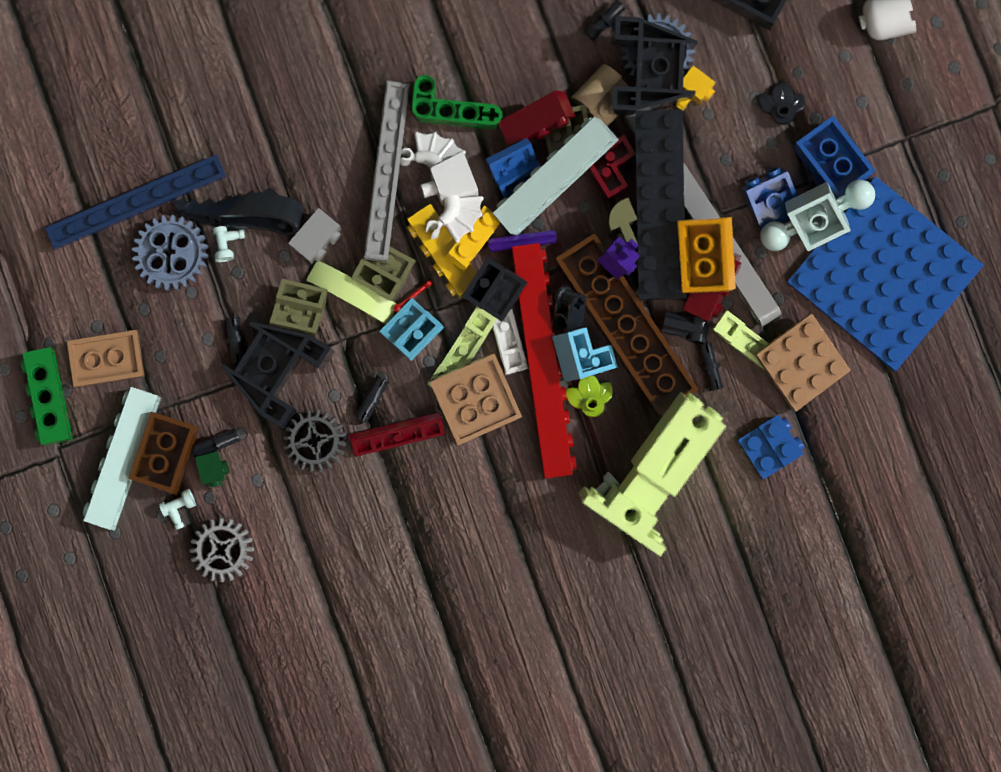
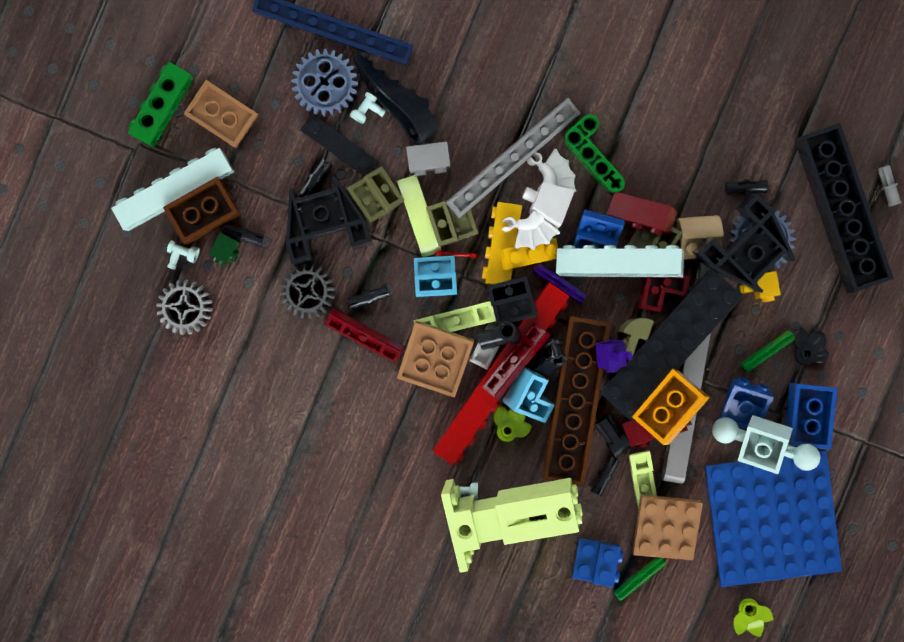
camera: 40 degrees right, 5 degrees up
(230, 294) = (339, 145): none -> black plate
(510, 330) = (497, 336): none -> black piece
(544, 336) = (516, 361): none -> dark red plate
(749, 138) = (767, 351): none -> green axle
(820, 427) = (639, 578): none -> green axle
(949, 375) = (753, 619): none -> lime plate

